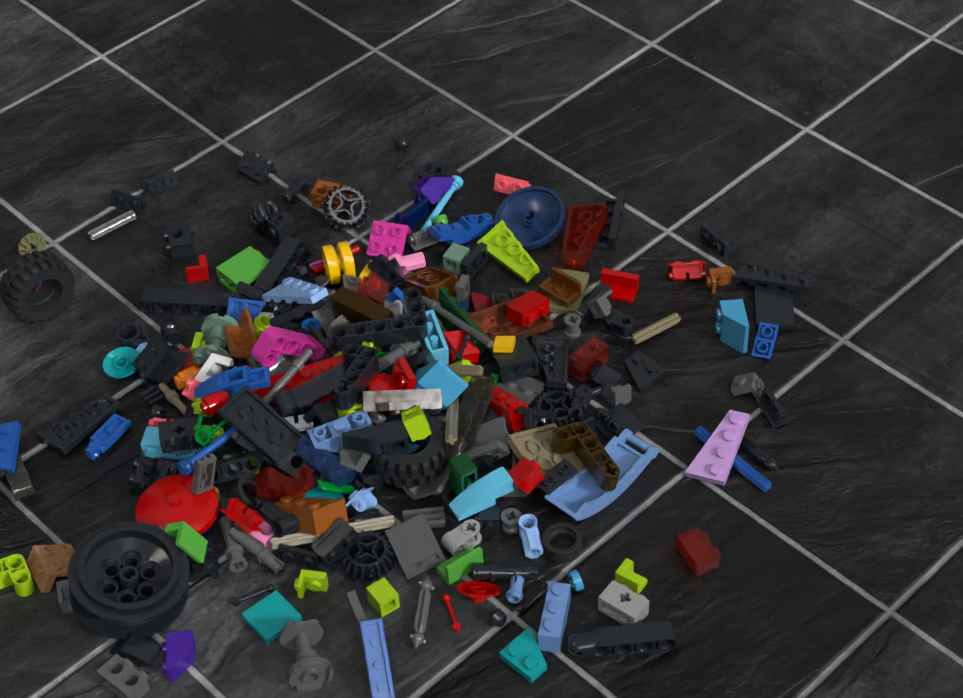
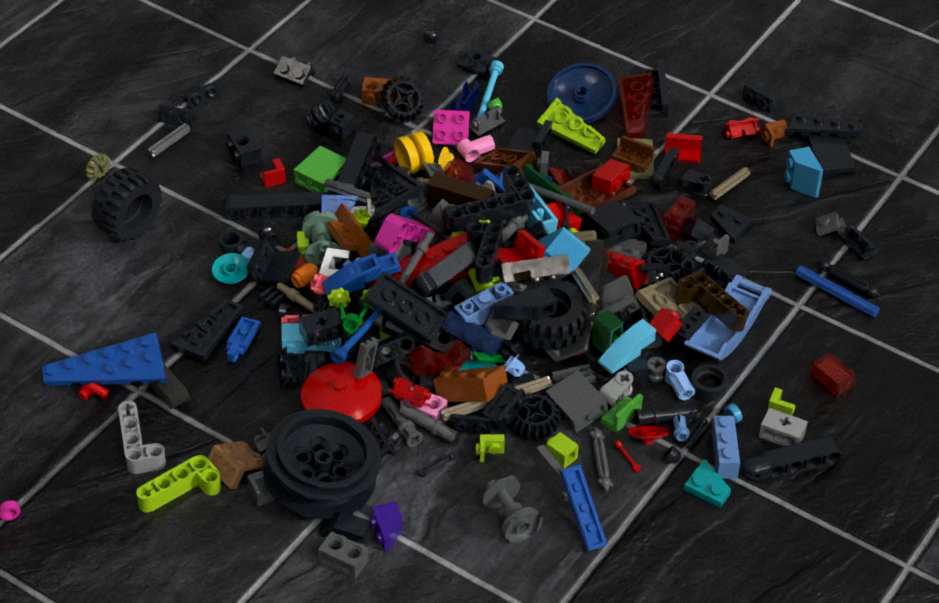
camera: 15 degrees left, 0 degrees up
(188, 540) = (368, 418): bright green panel -> none
(212, 403) = (353, 292): red brick -> none
(270, 616) = (462, 481): teal tile -> none
(280, 522) = (448, 395): black piece -> none
(296, 290) = (389, 181): light blue wing -> none
(388, 270) = (464, 153): black slope -> none
(416, 423) = (558, 286): lime brick -> none
(433, 188) = (479, 73): dark purple slope -> none
(453, 258) = (524, 137): sand green brick -> none
(465, 230) = (522, 110): blue slope -> none
(504, 344) = (604, 210): yellow tile -> none
(509, 184) = (549, 65): coral hinge -> none
(572, 325) = (653, 188): dark grey bush -> none
(600, 305) = (675, 167): dark grey panel -> none
(718, 453) = (825, 286): lavender wing -> none
(765, 340) = (833, 184): blue slope -> none

